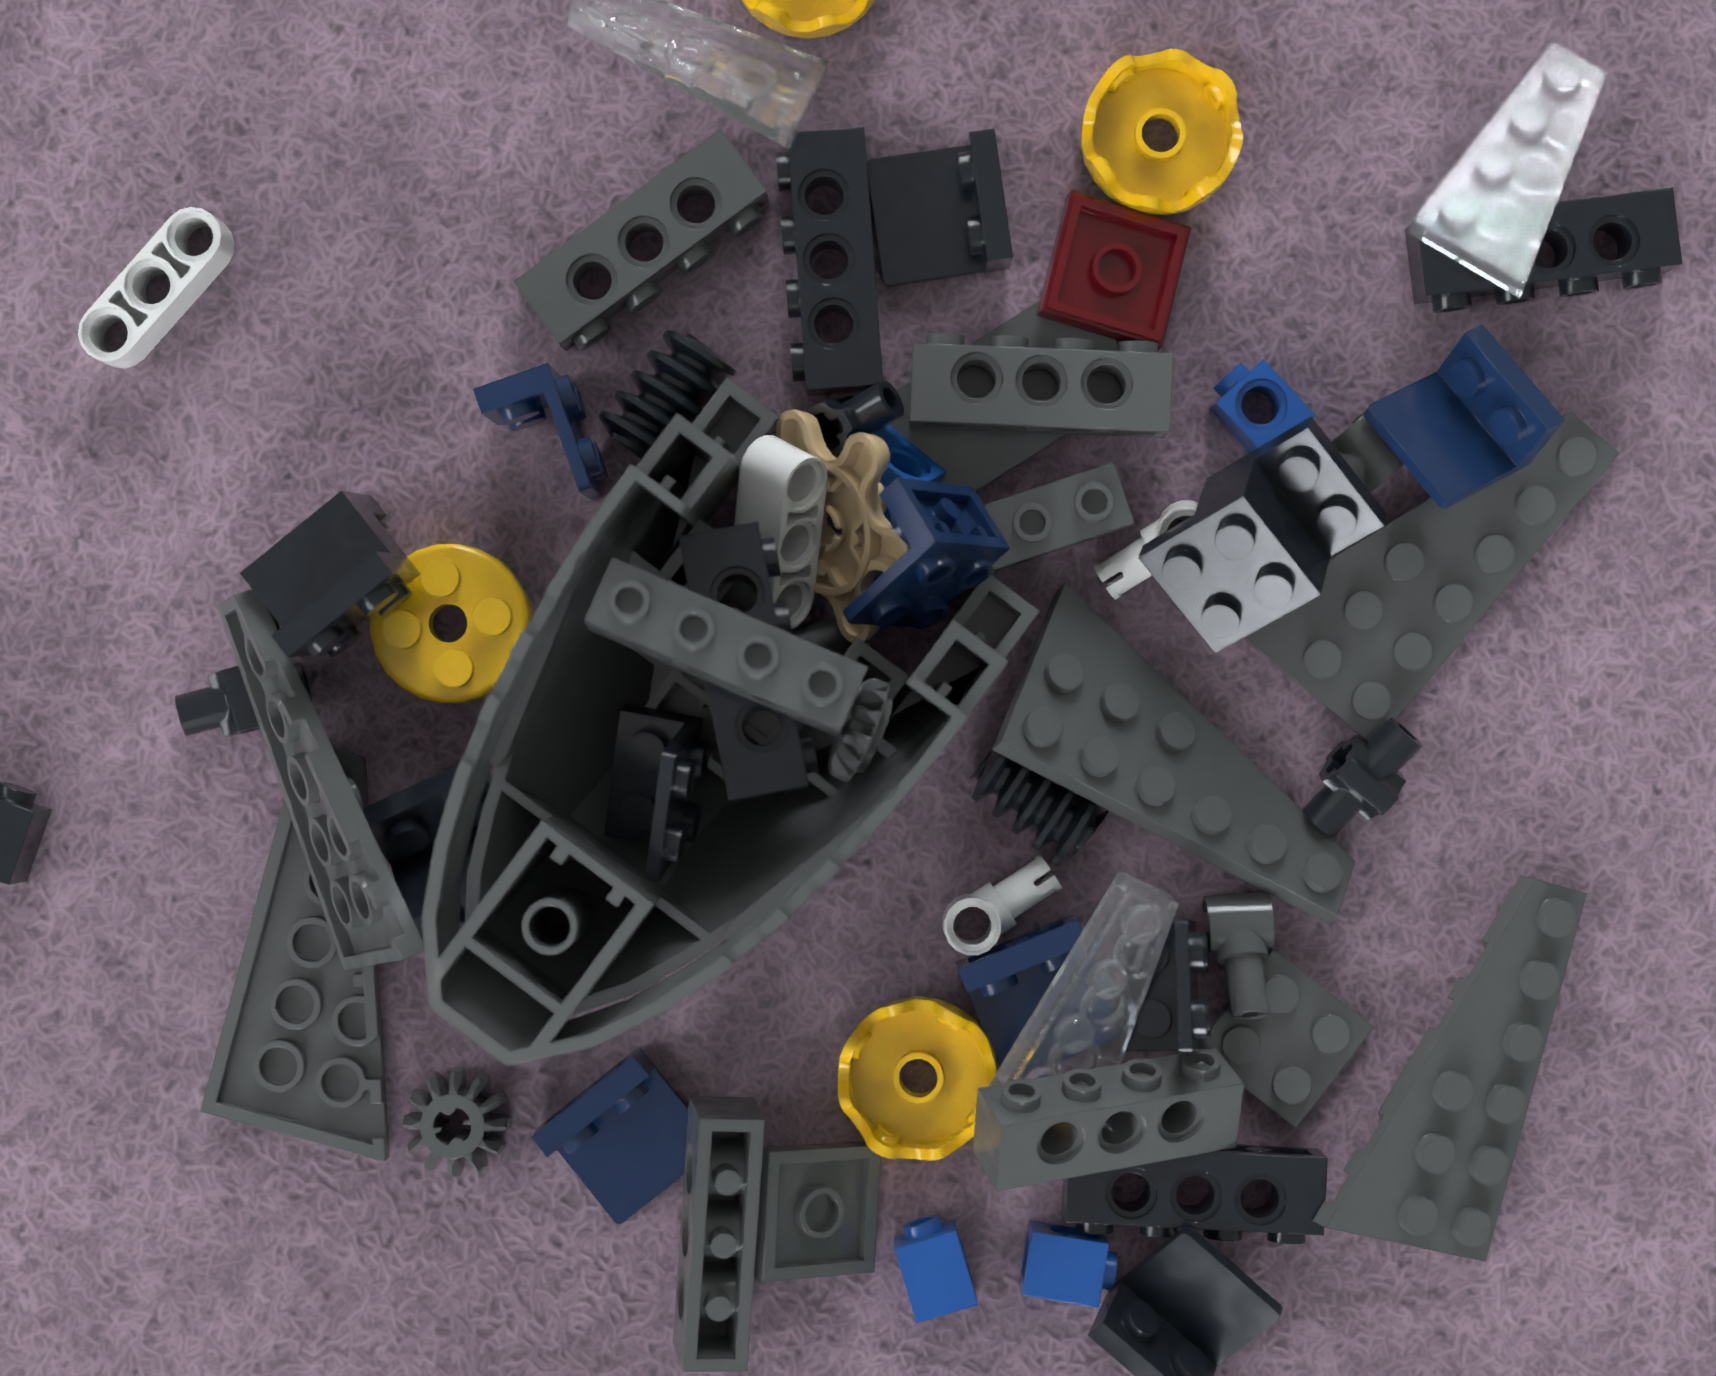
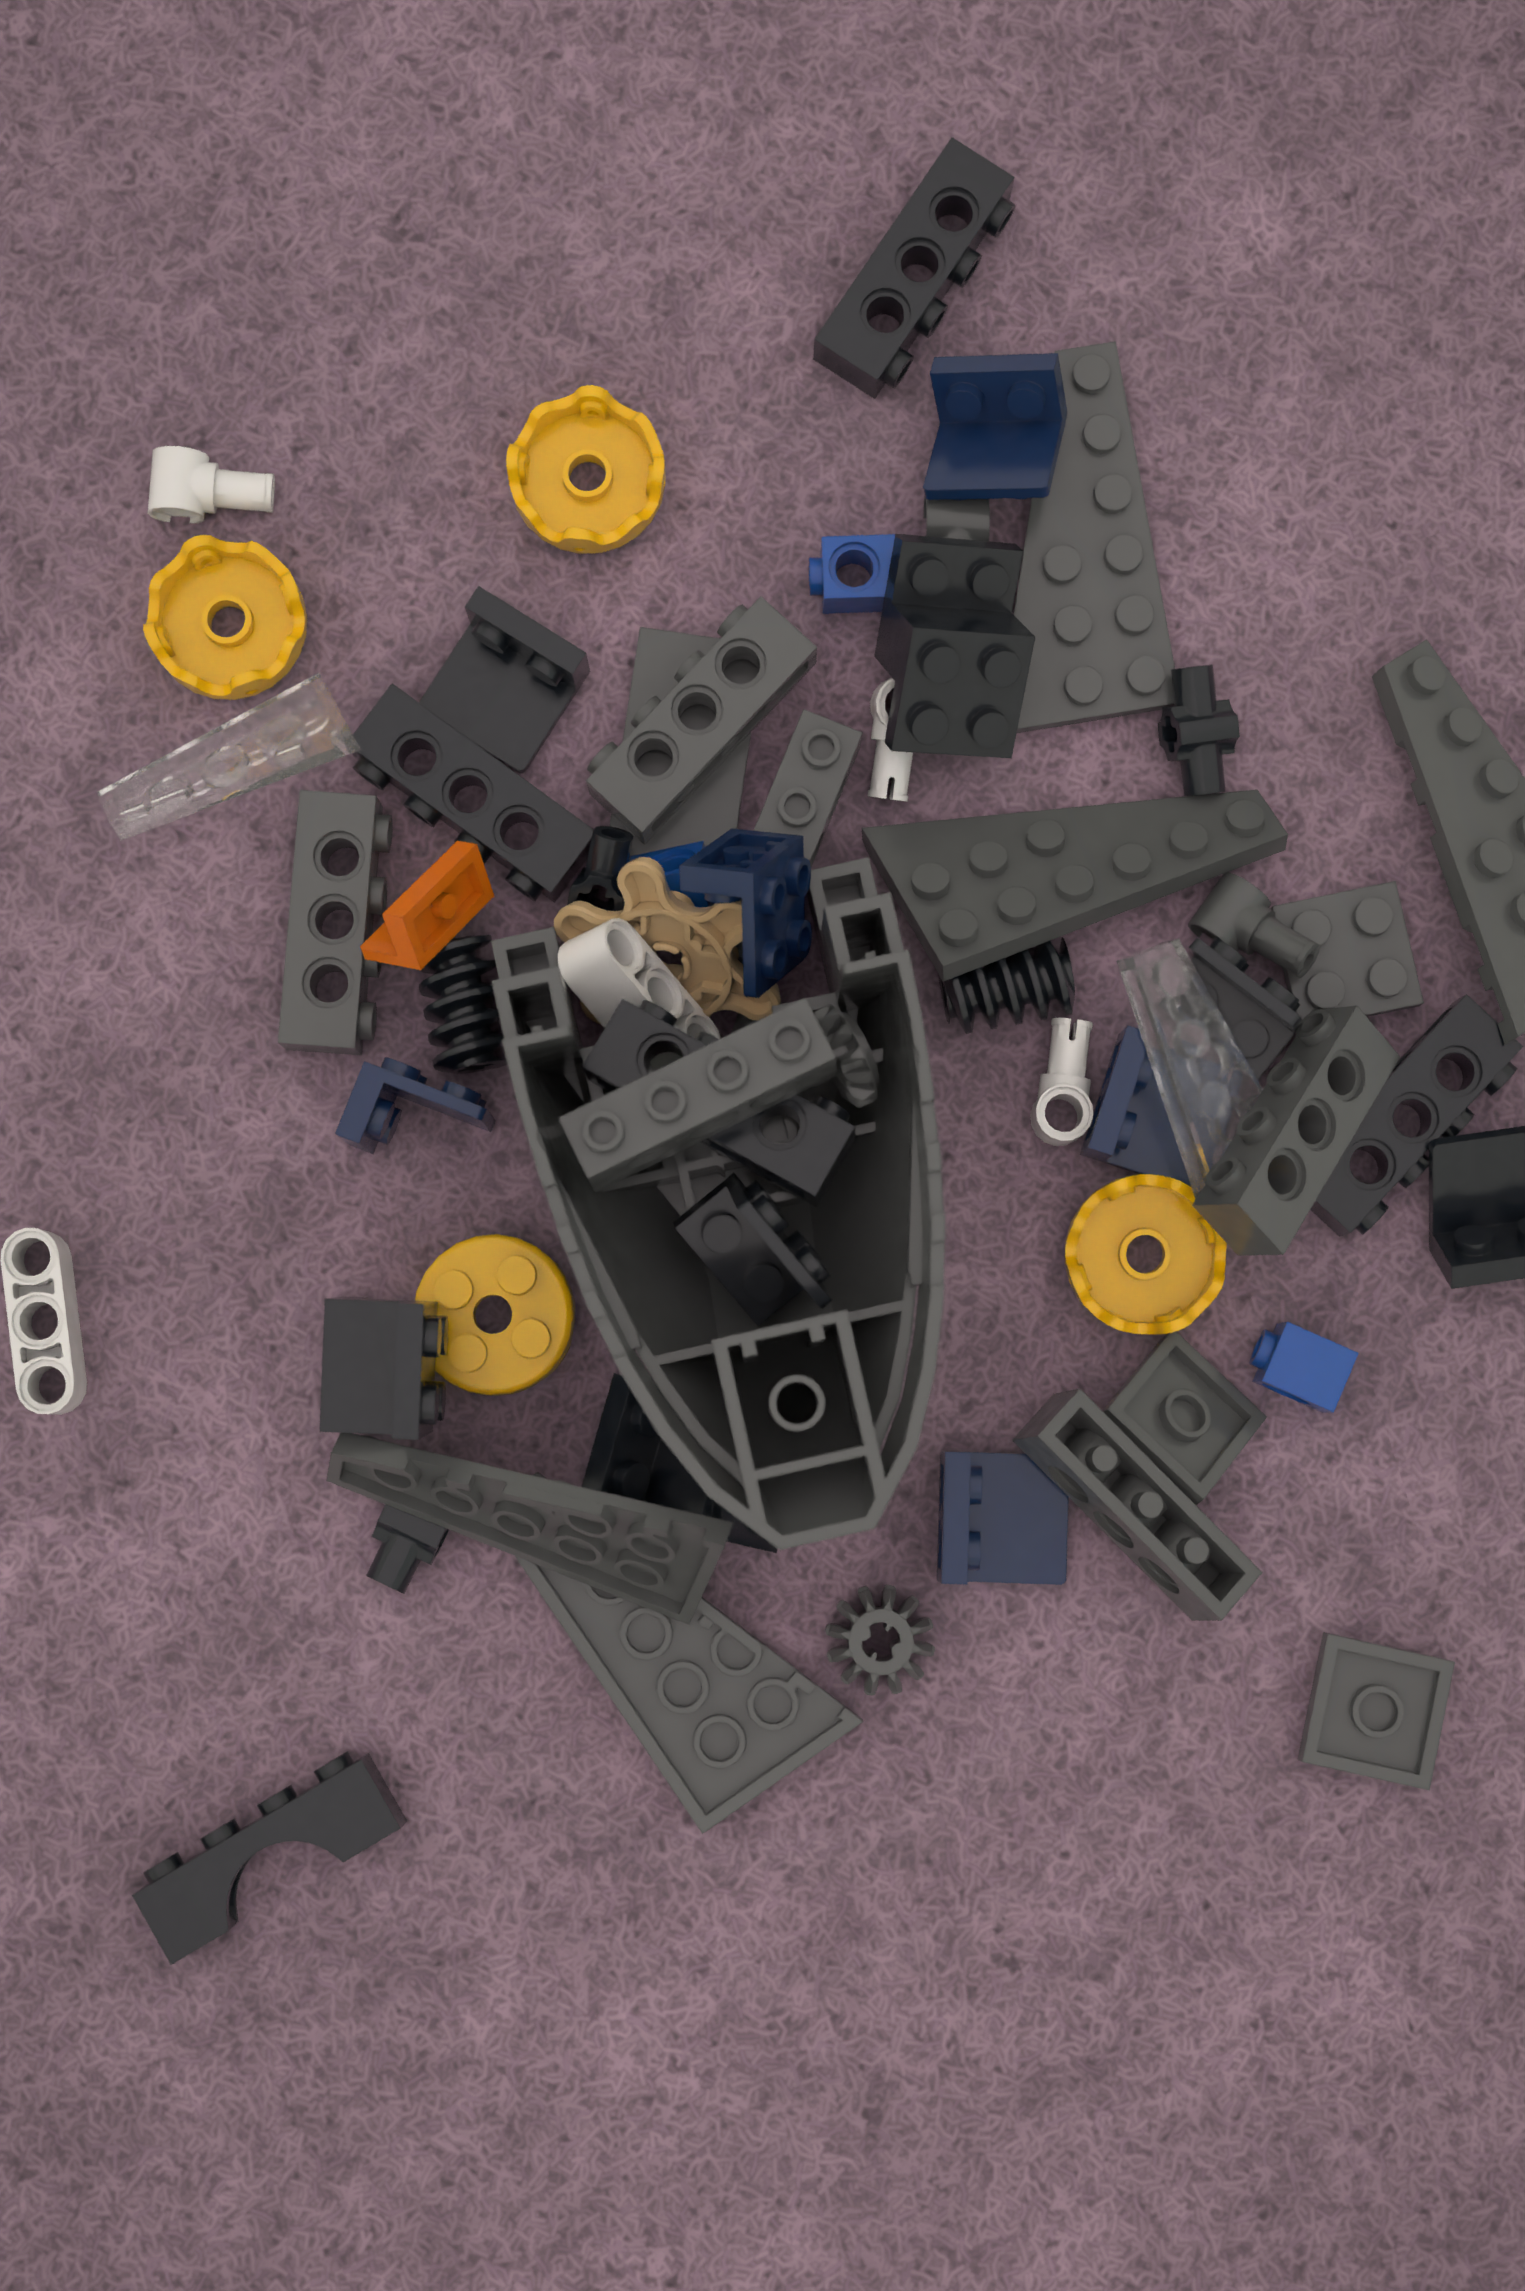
camera: 45 degrees left, 5 degrees down
(713, 311) = (432, 909): none -> orange panel
(1066, 1265) = (1383, 1263): blue brick -> none
(1113, 270) = (658, 594): dark red tile -> none
(1508, 181) = (843, 246): clear wing -> none

